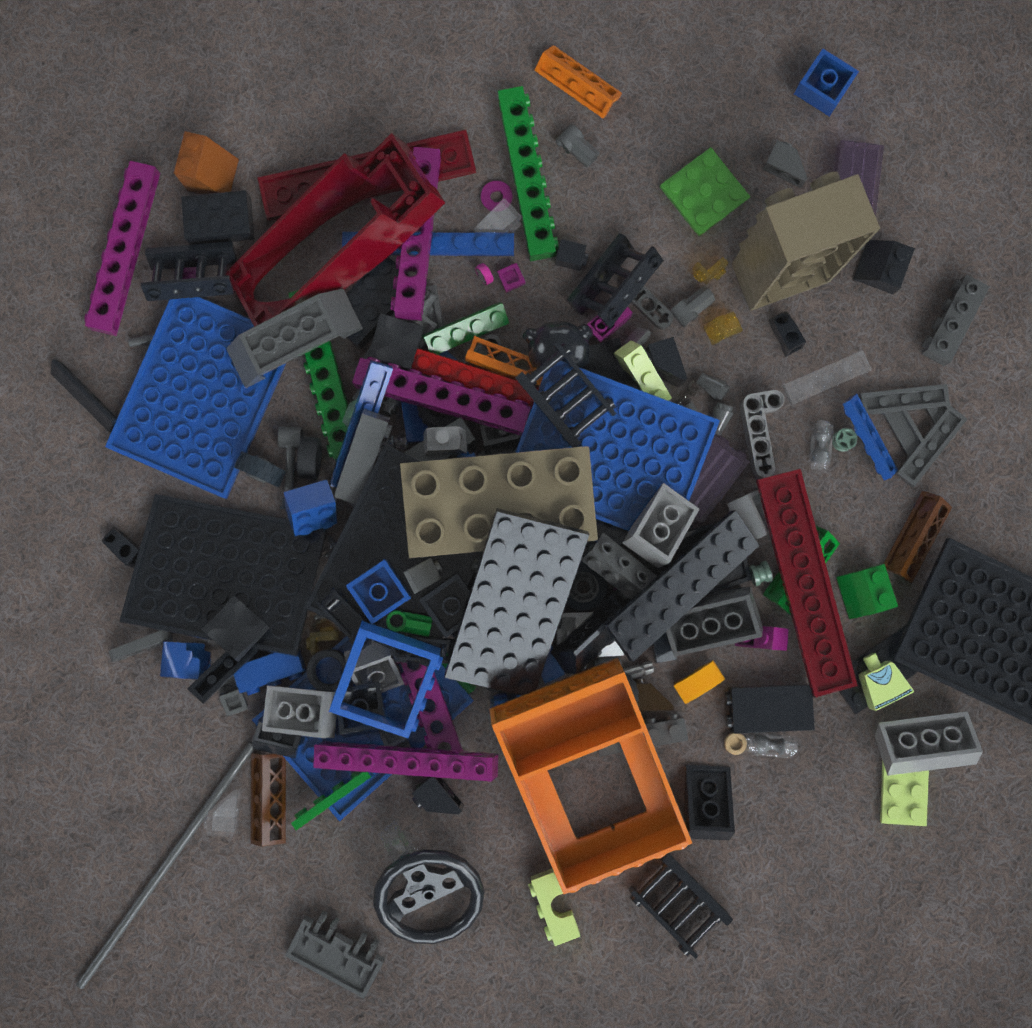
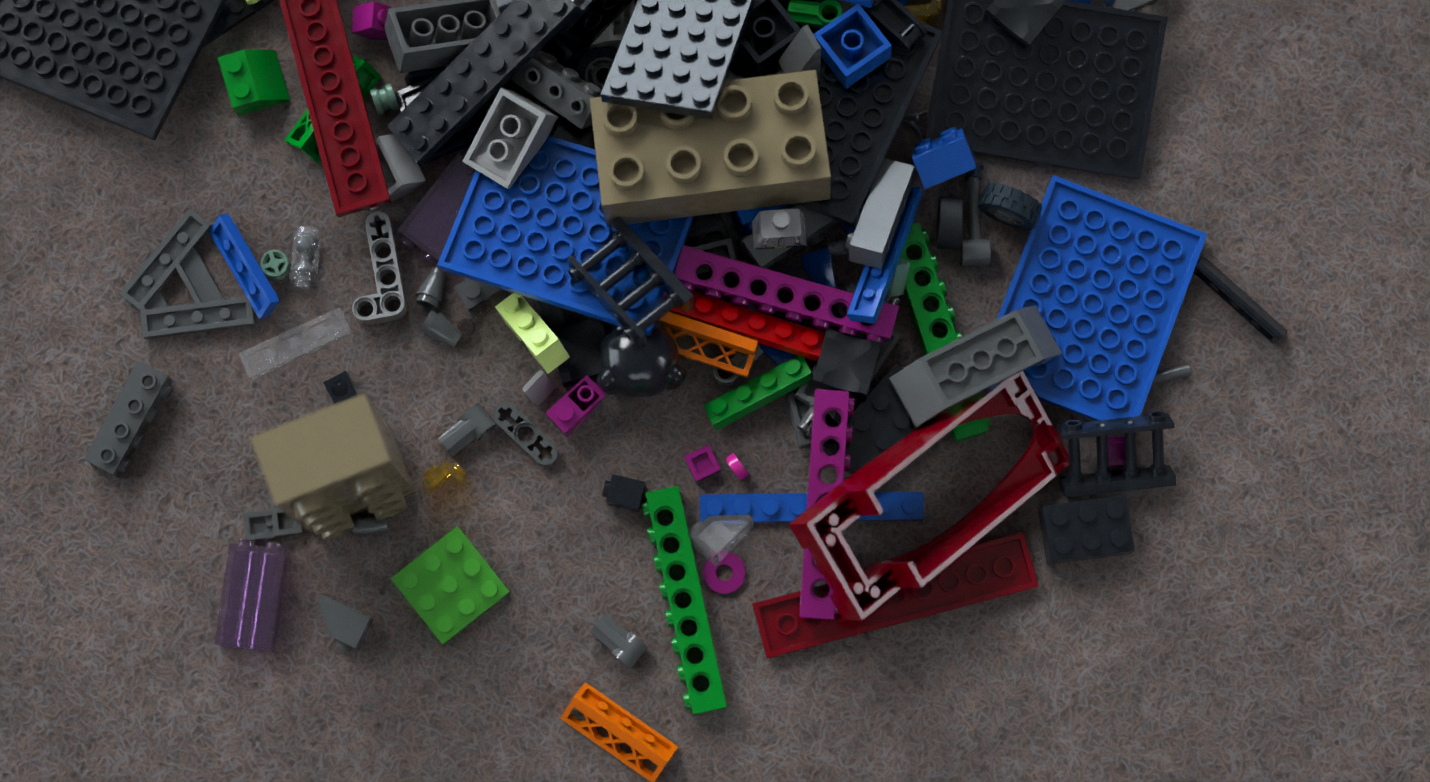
camera: 175 degrees right, 5 degrees down
(121, 546) = (1176, 114): black leg -> none
(134, 174) = (1233, 394): magenta brick -> none
(205, 165) = (1104, 592): dark orange slope -> none
(602, 272) = (587, 468): black fence -> none
(667, 361) = (505, 352): black slope -> none
(722, 328) = (427, 404): clear yellow bracket -> none
(826, 82) = (288, 731): blue brick -> none
(884, 265) = (218, 489): black slope -> none
(915, 534) = (189, 150): reddish brown fence -> none

